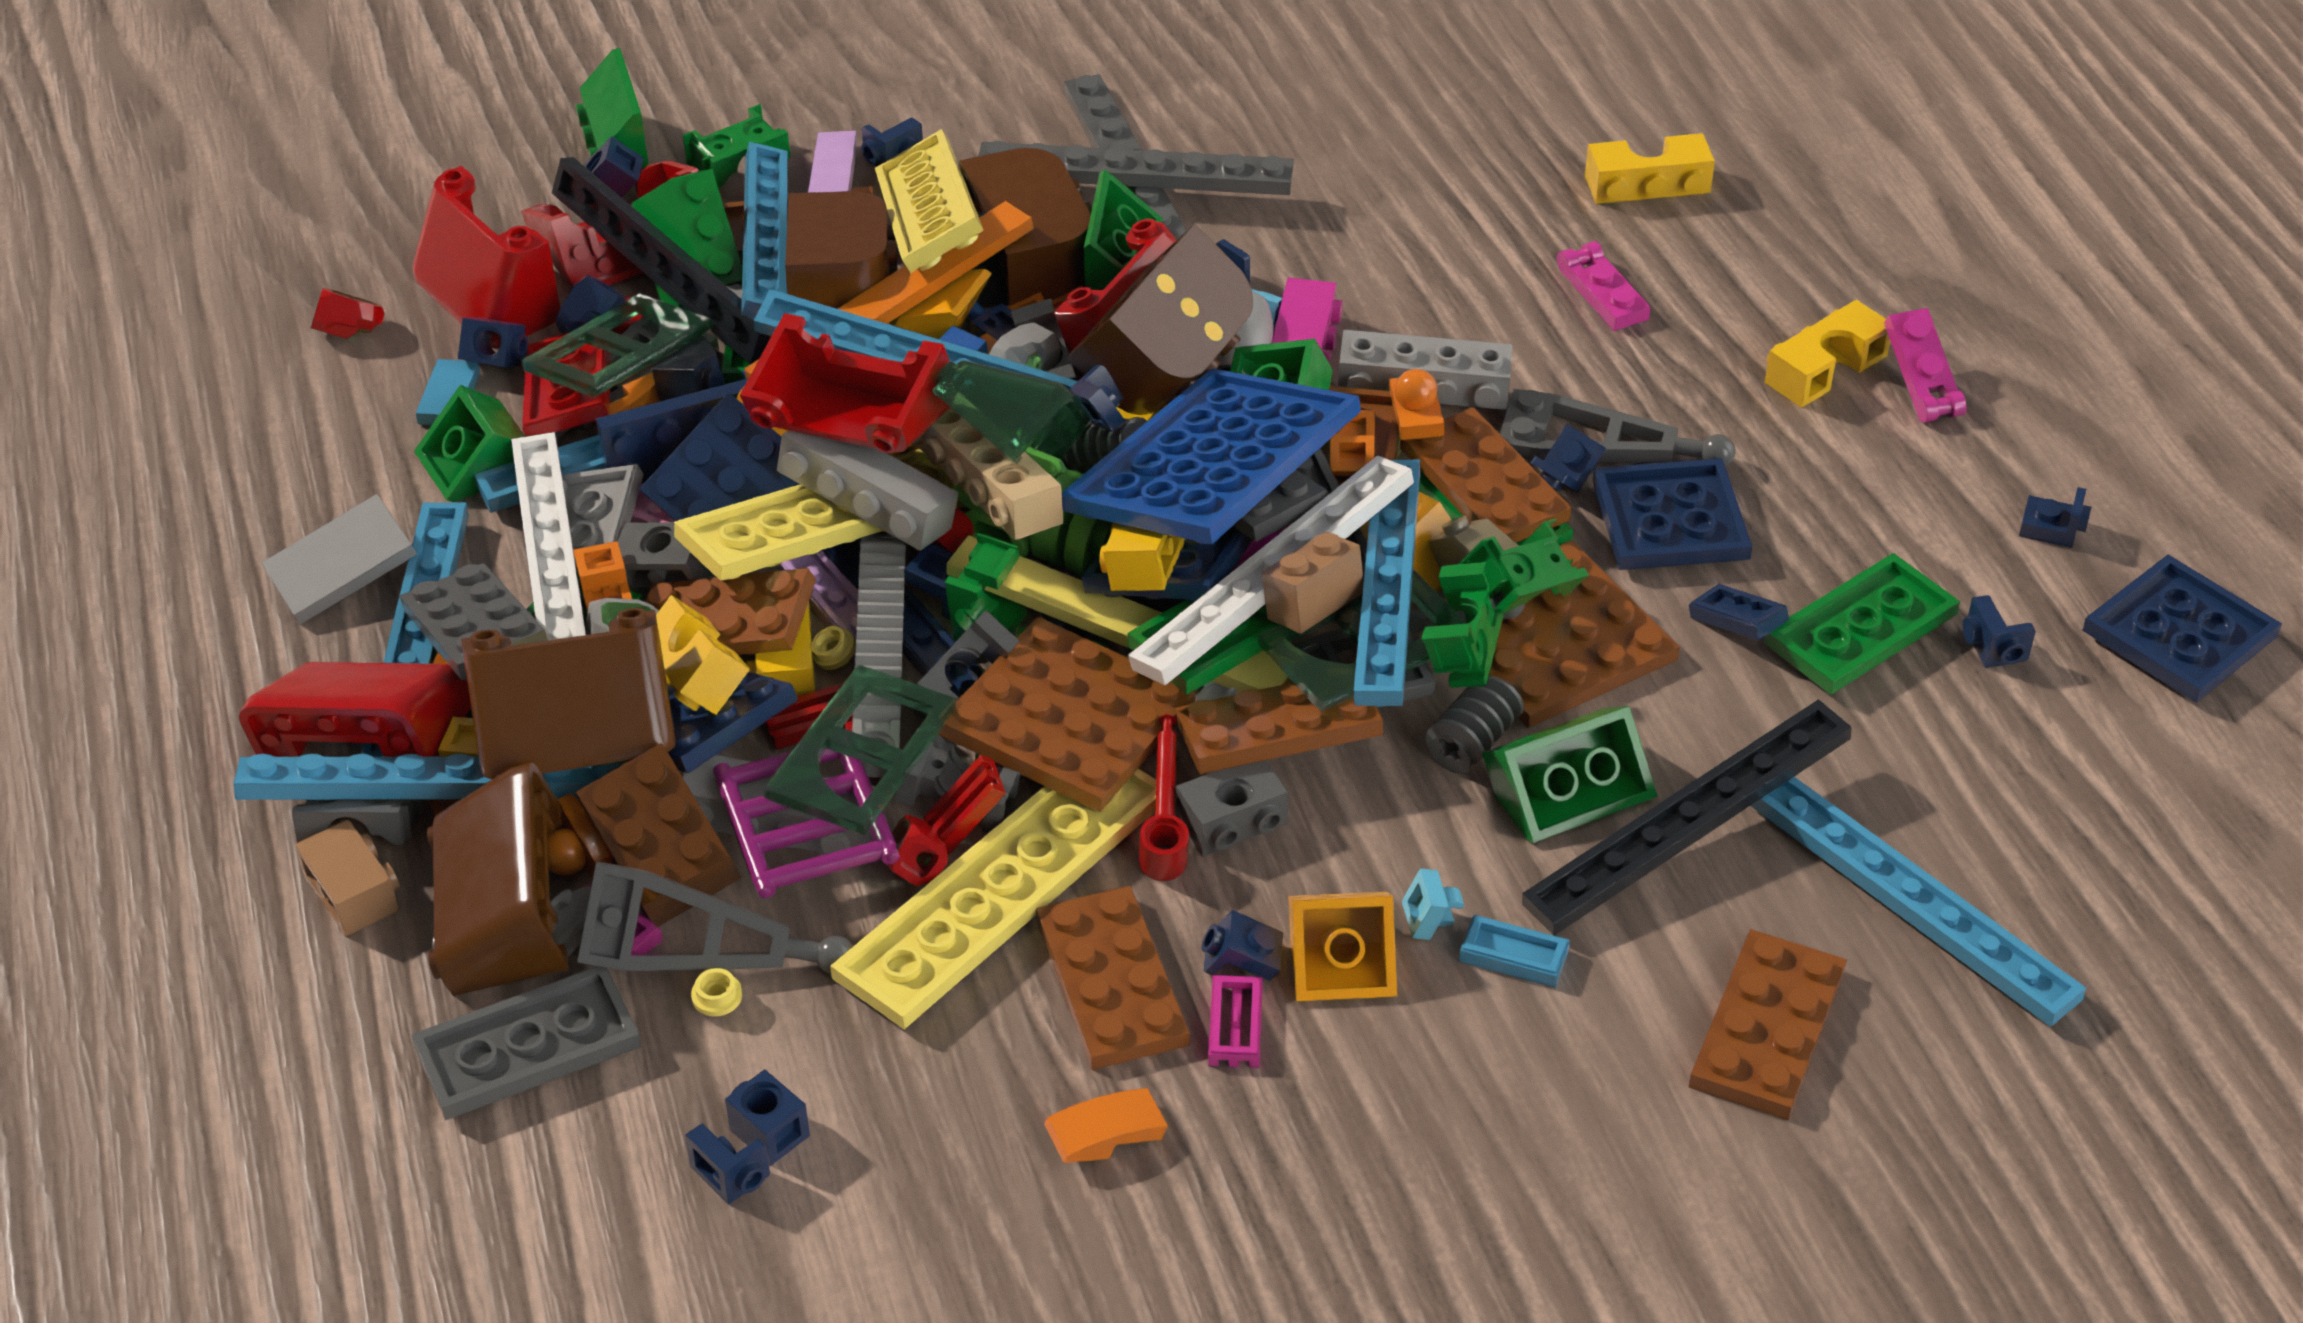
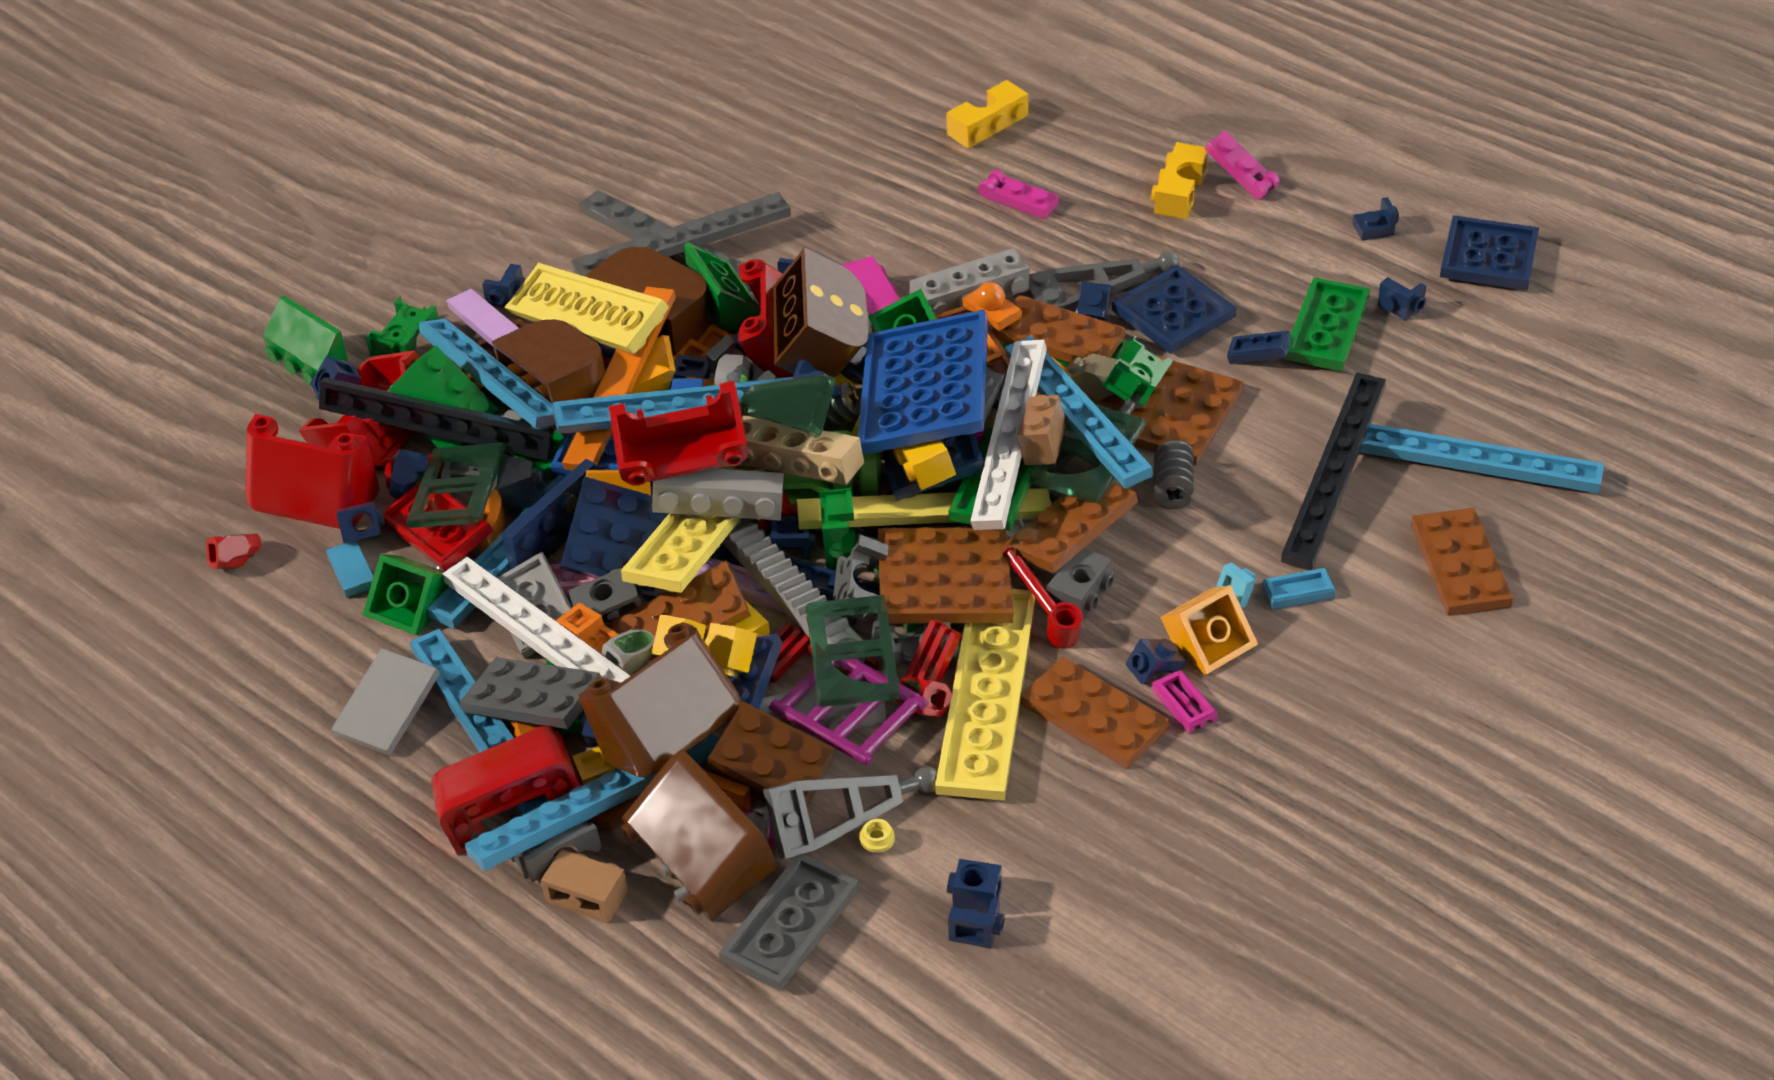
camera: 30 degrees left, 0 degrees up
(833, 647) = (760, 599): light yellow plate -> none
(1099, 1124) = (1167, 792): orange slope -> none
(1468, 647) = (1146, 433): green piece -> none
(1571, 773) = (1247, 476): green slope -> none

